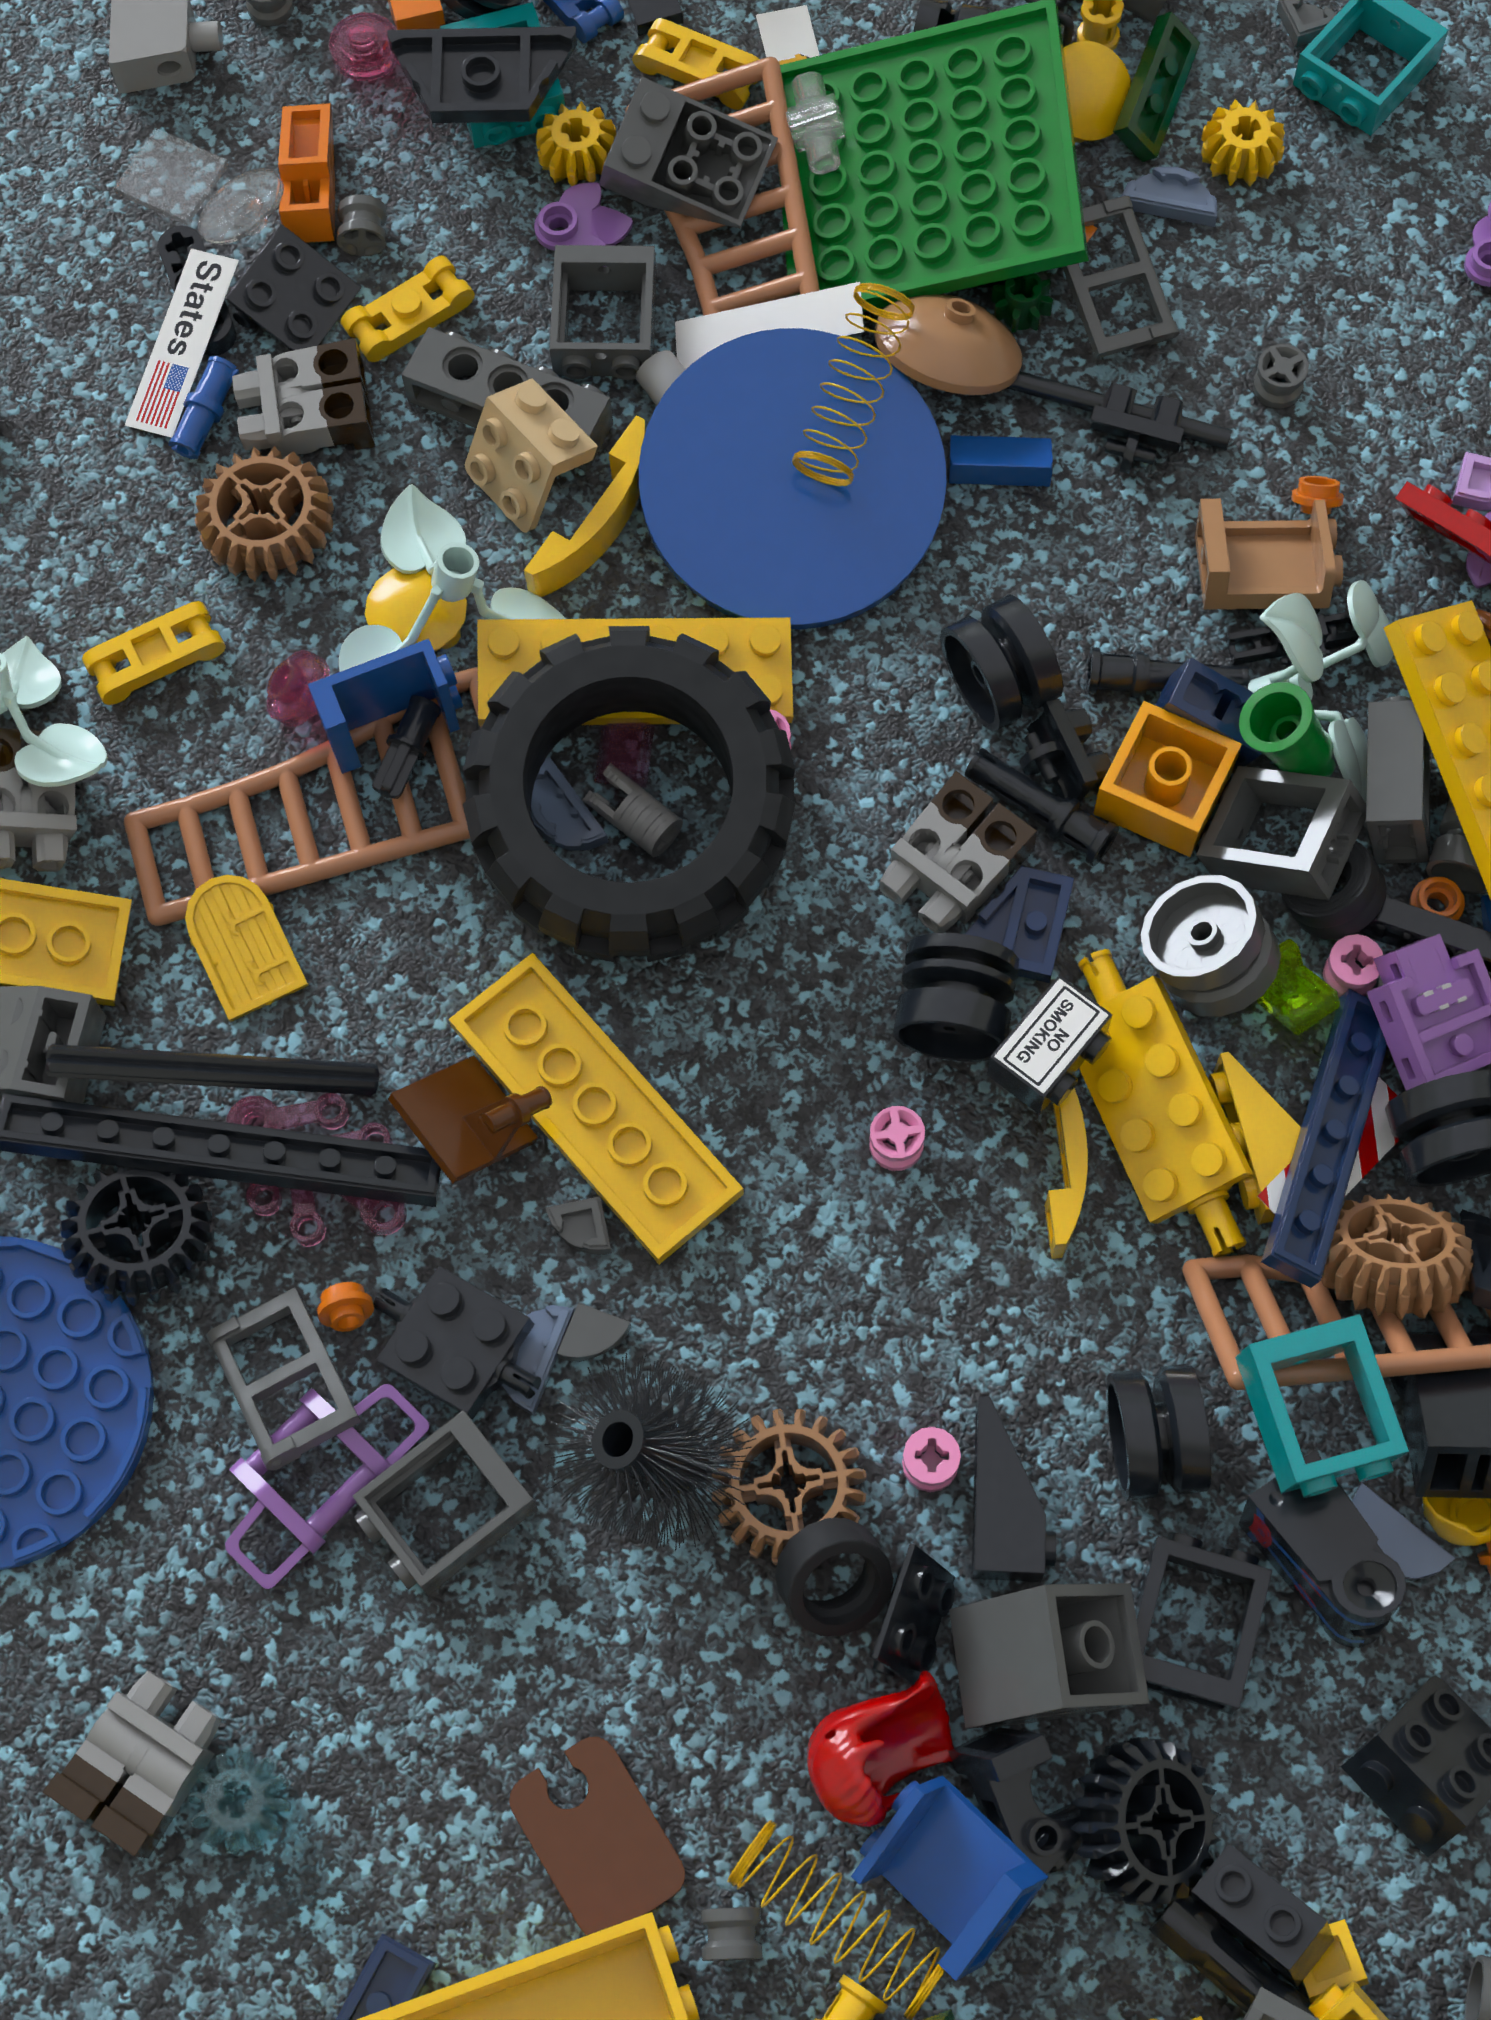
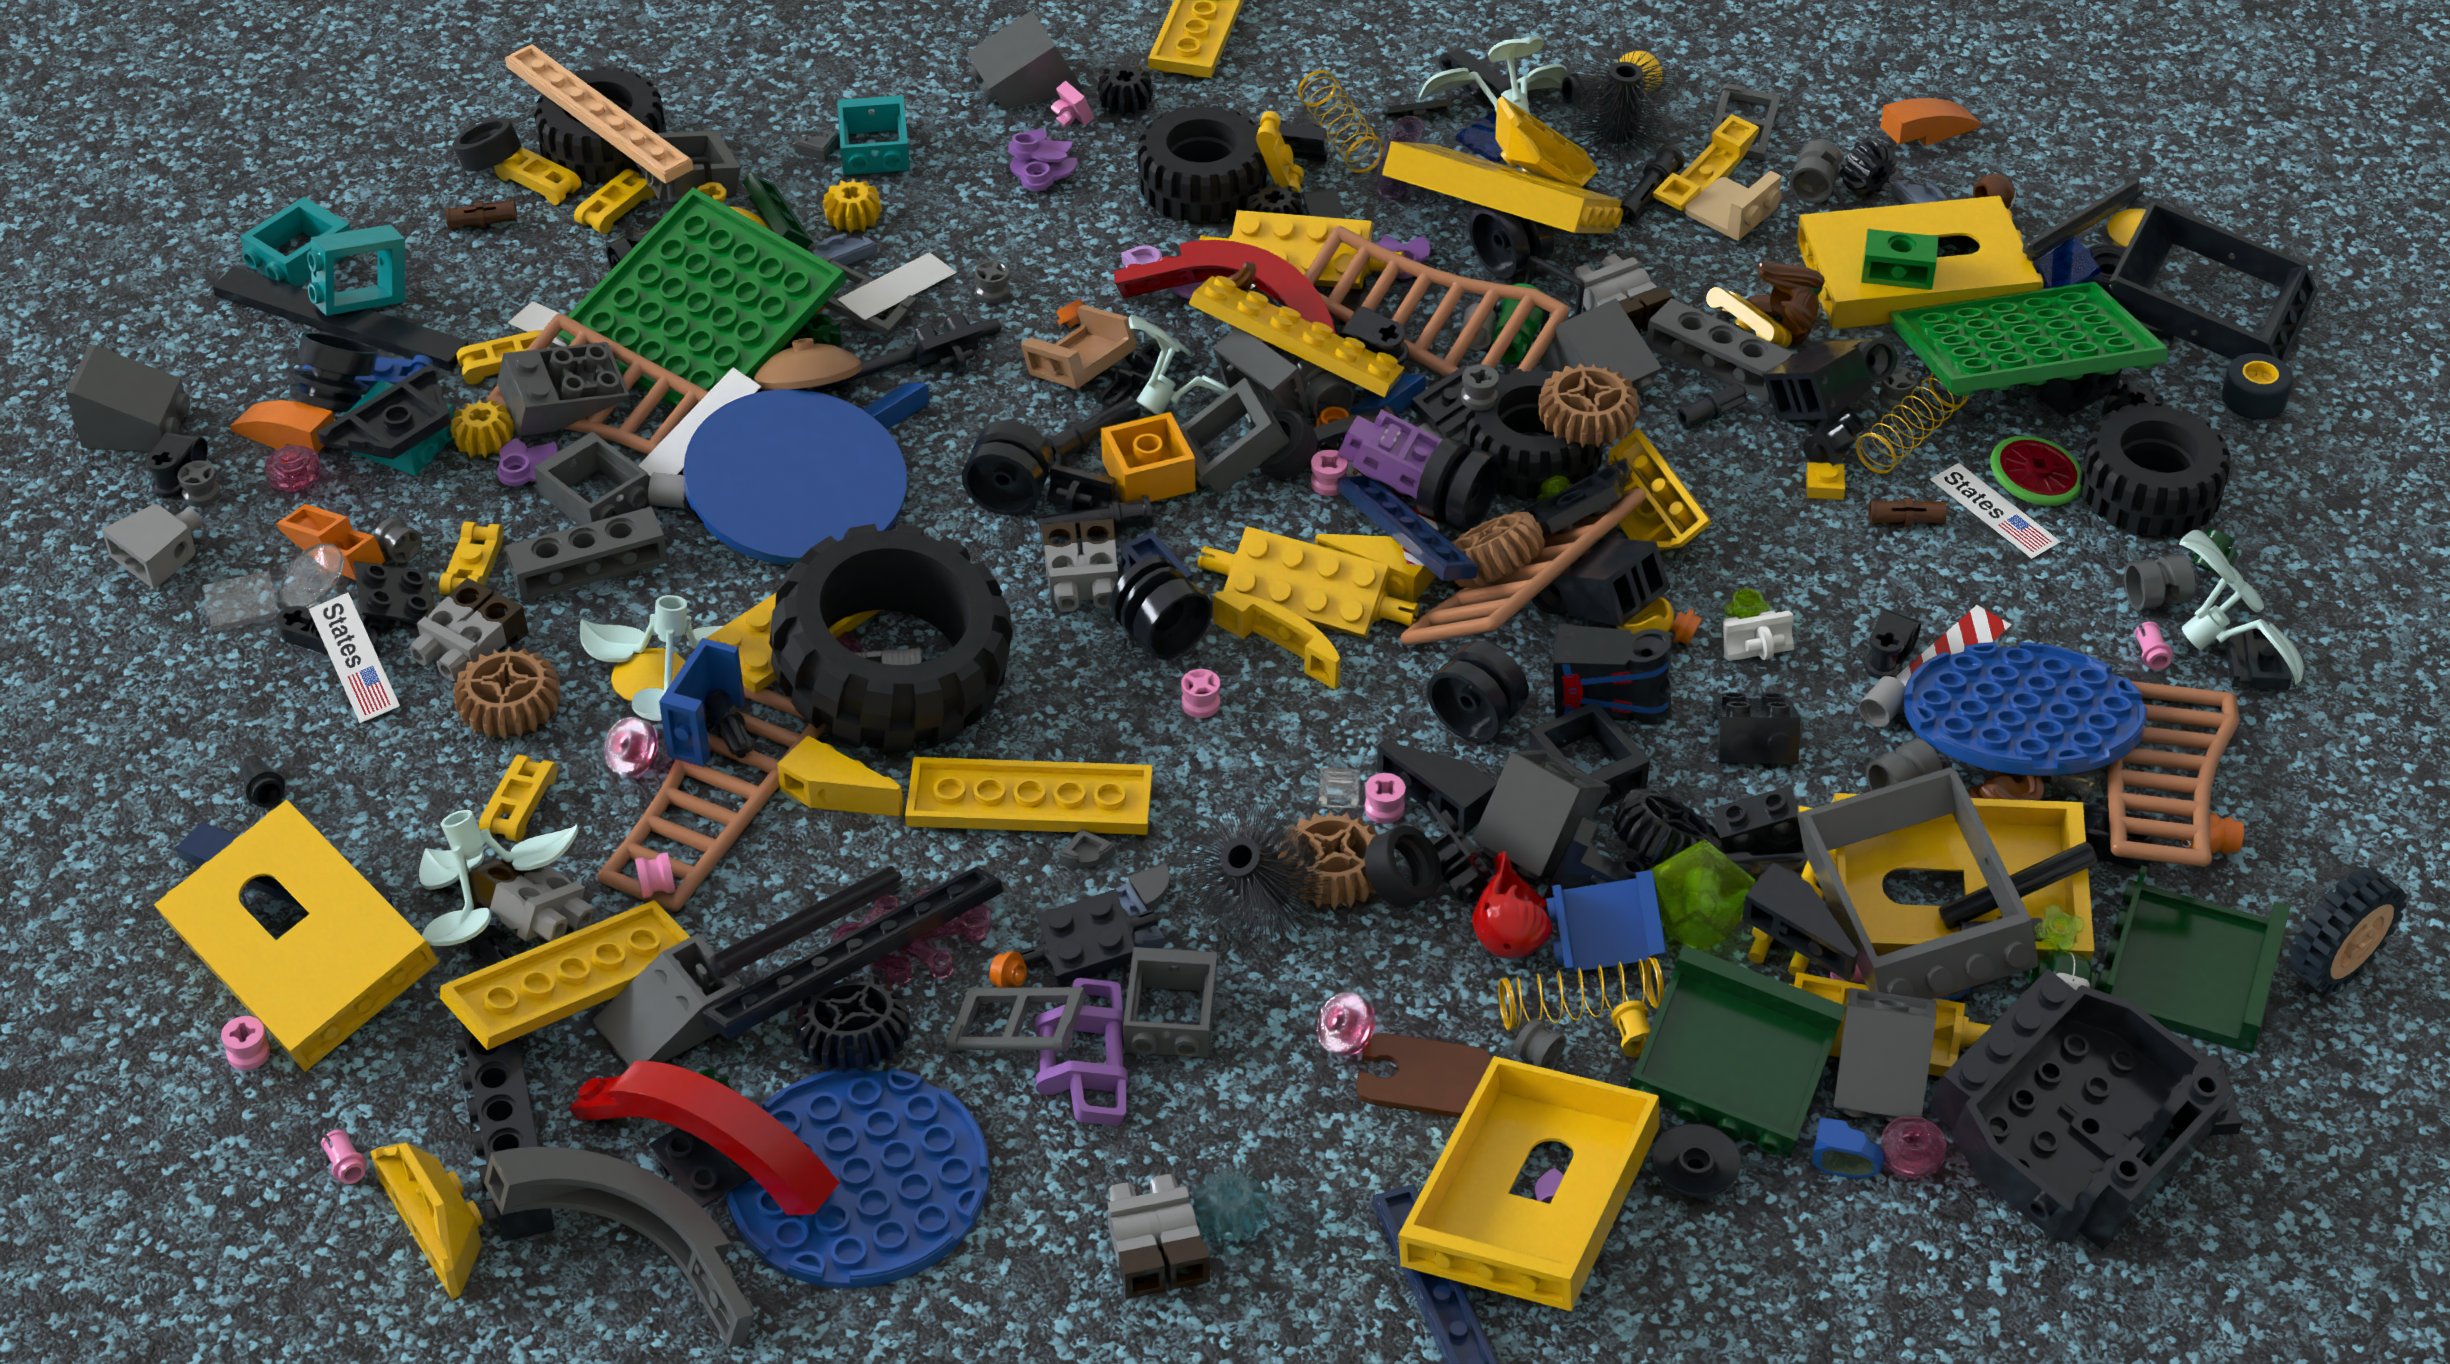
camera: 50 degrees left, 25 degrees down
(147, 875) = (655, 875): none -> bright pink wheel
(203, 407) = (405, 677): blue pin -> none
(241, 945) = (742, 877): yellow window -> none
(429, 899) = (832, 781): none -> yellow slope
(468, 1118) = (986, 845): reddish brown plate -> none
(522, 448) = (632, 561): tan bracket -> none
(563, 559) = (699, 540): yellow slope -> none
(572, 1708) = (1345, 1024): none -> clear pink plate
(816, 123) = (618, 324): clear axle -> none
(863, 287) = (752, 348): yellow piece -> none
(907, 1395) = (1339, 787): none -> clear tile
(1050, 1046) = (1235, 582): brick -> none
(1073, 1953) = (1701, 895): none -> clear neon green slope
(1173, 297) = (896, 286): none -> white sticker
(1208, 701) = (1134, 404): dark blue brick -> none
(1210, 945) = (1256, 494): dark grey wheel -> none
(1257, 1370) = (1534, 614): teal window -> none
(1285, 729) = (1188, 380): green plant -> none
(1297, 994) = (1313, 501): clear neon green bracket -> none

